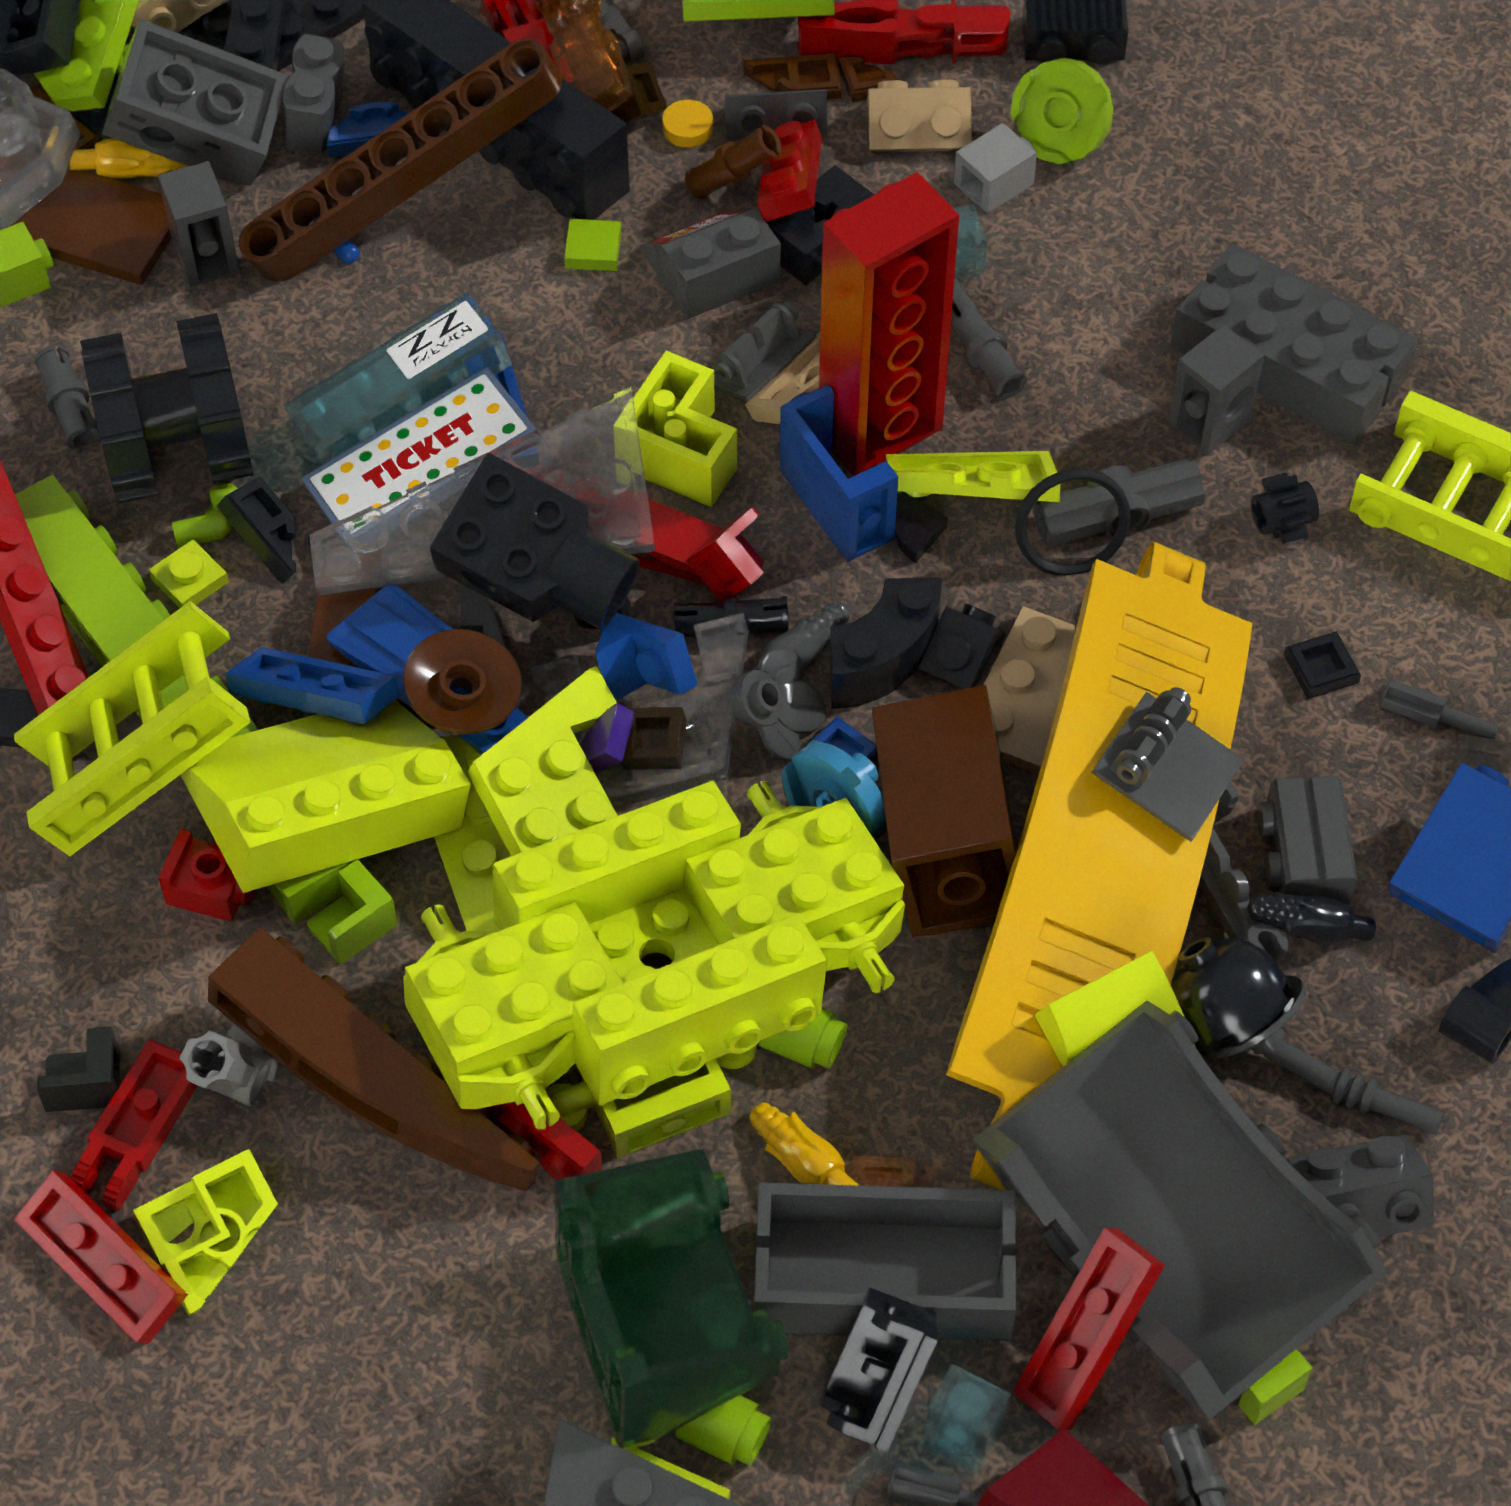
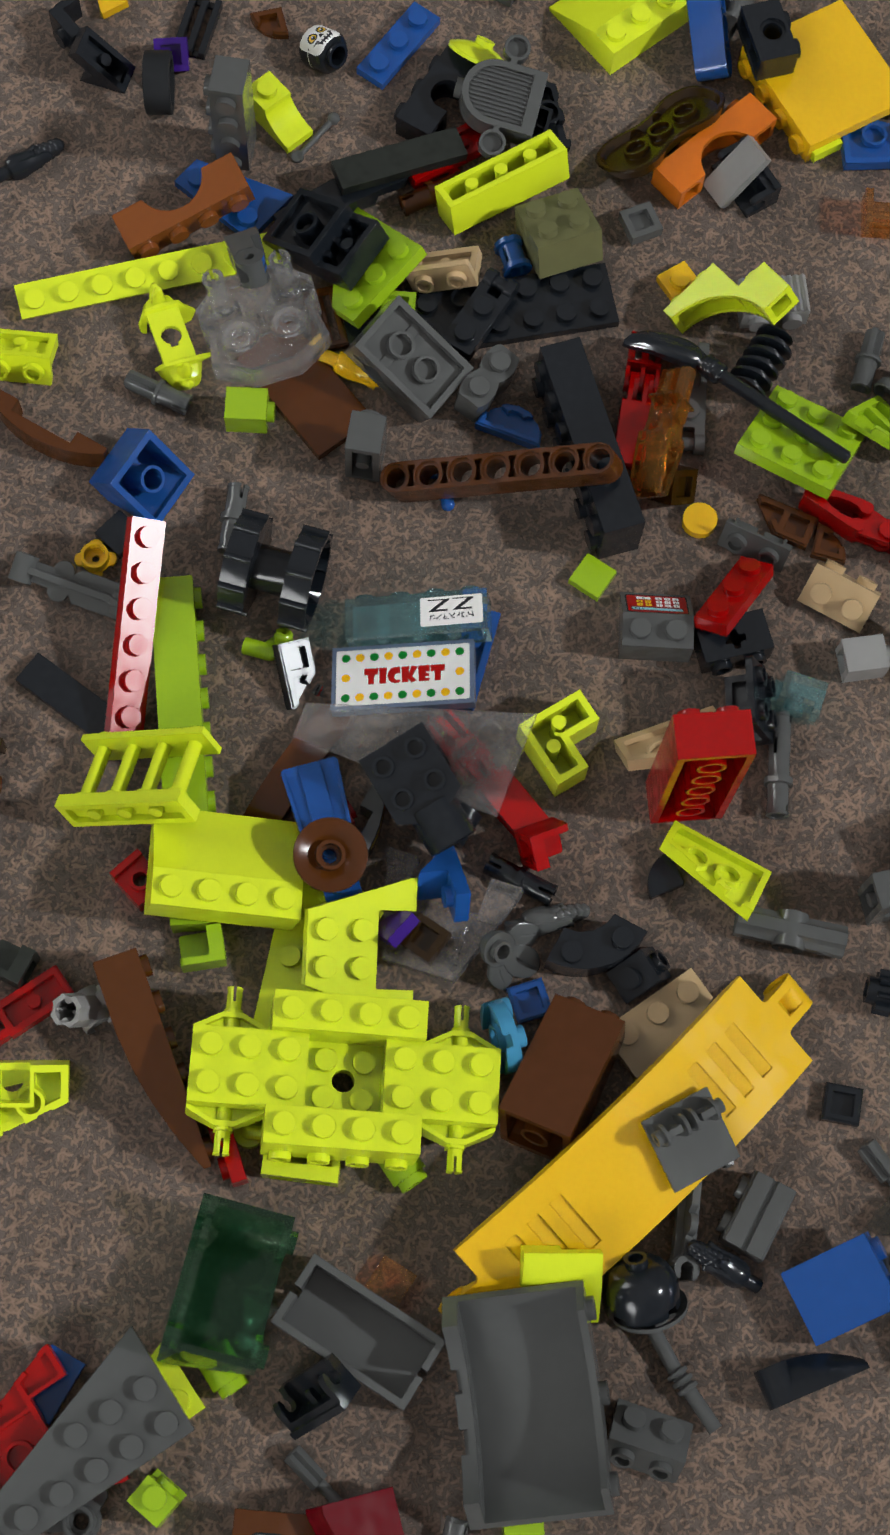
camera: 25 degrees right, 15 degrees up
(188, 575) = (236, 676): neon yellow plate -> none
(312, 685) = (256, 799): blue plate -> none
(733, 162) = (703, 572): reddish brown pin -> none
(752, 363) = (643, 713): dark grey hinge -> none
(798, 1148) = (359, 1239): yellow piece -> none
(853, 511) = (628, 859): blue panel -> none
(965, 1418) = (346, 1445): clear light blue brick -> none
(1051, 481) = (755, 912): black tyre -> none
(1088, 1328) = (438, 1441): red plate -> none

